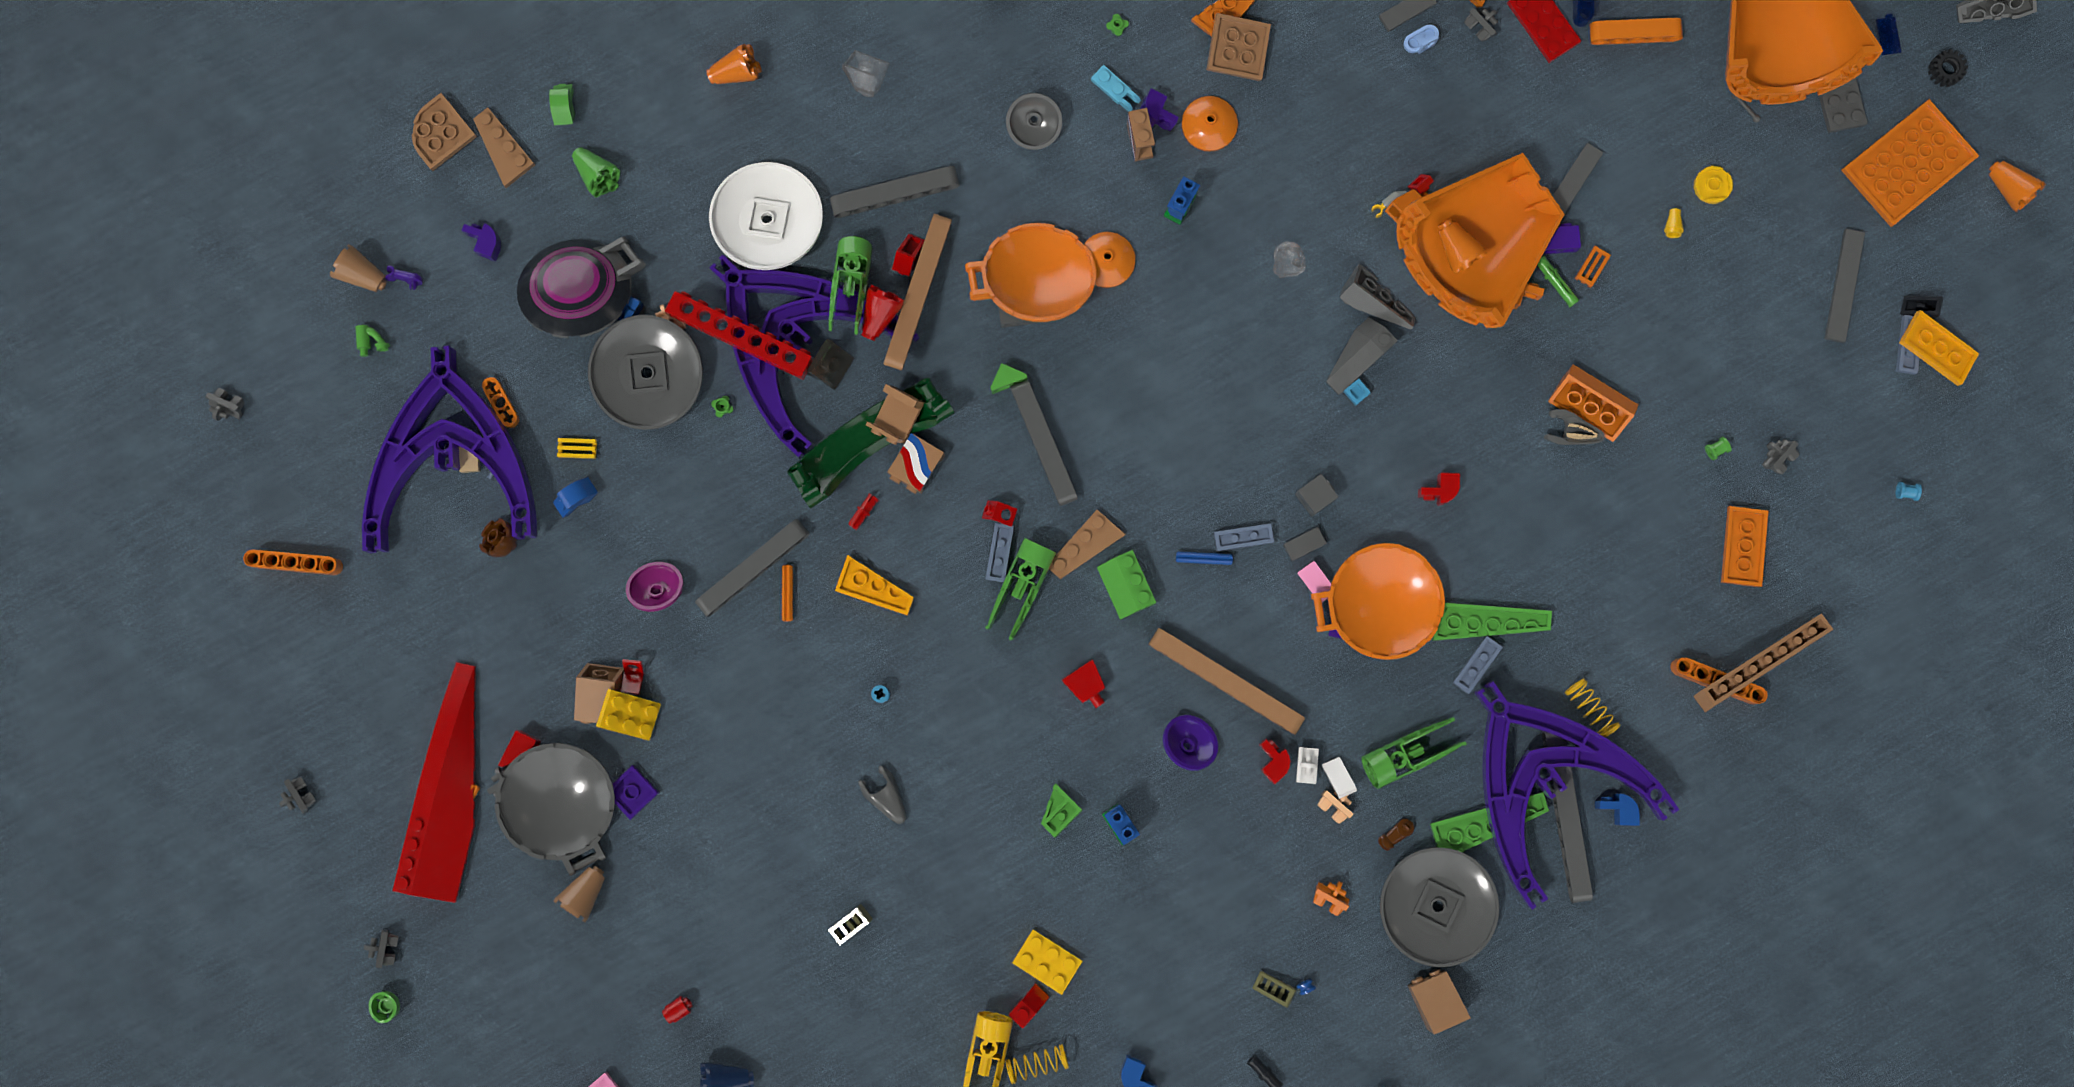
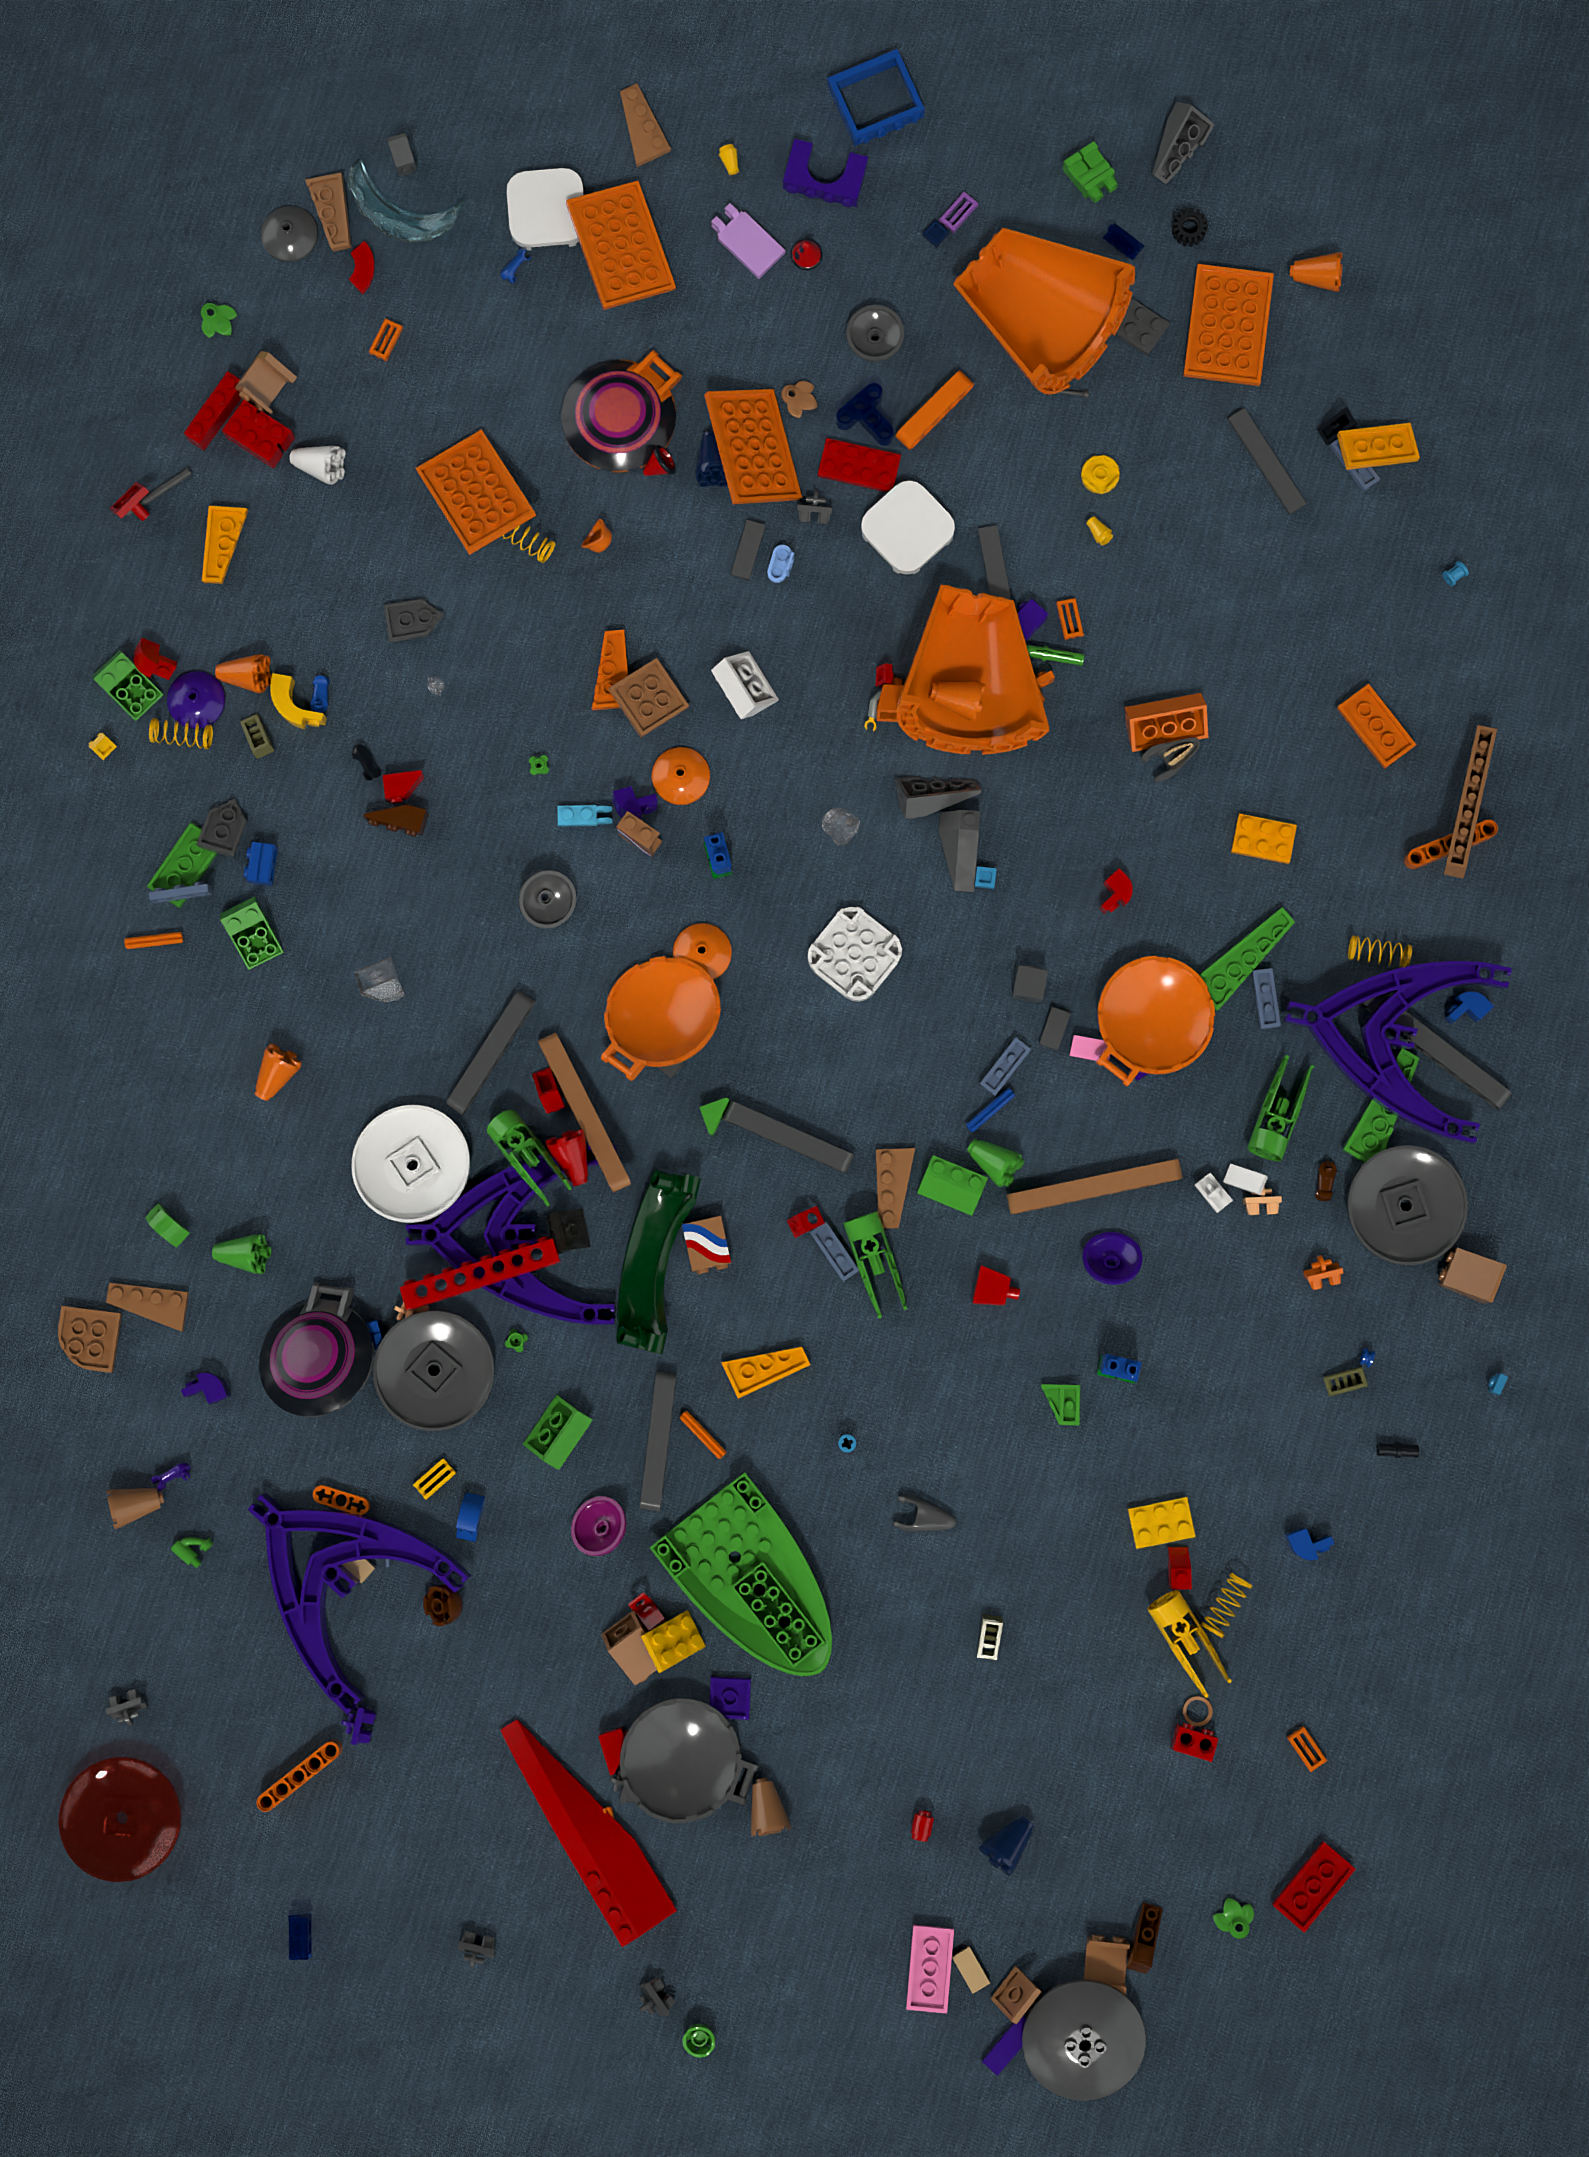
camera: 45 degrees left, 0 degrees up
(121, 472) = (91, 1824): none -> clear red dish
(189, 673) = (300, 1937): none -> clear blue hinge
(363, 564) = (363, 1716): none -> dark purple hips
(689, 496) = (557, 1432): none -> bright green slope
(697, 714) = (724, 1592): none -> bright green piece
(863, 511) = (701, 1318): red axle -> none
(896, 415) = (658, 1222): medium nougat panel -> none
(1173, 597) = (996, 1161): none -> bright green cone
(1212, 359) = (854, 954): none -> white tile
(1279, 762) = (1191, 1212): red brick -> none
(1315, 100) = (744, 684): none -> white slope
(1537, 95) = (907, 527): none -> white tile
(1584, 550) = (1263, 838): none -> light orange plate
(1718, 448) = (1289, 671): bright green bush -> none
(1779, 453) = (1336, 633): dark grey hips -> none

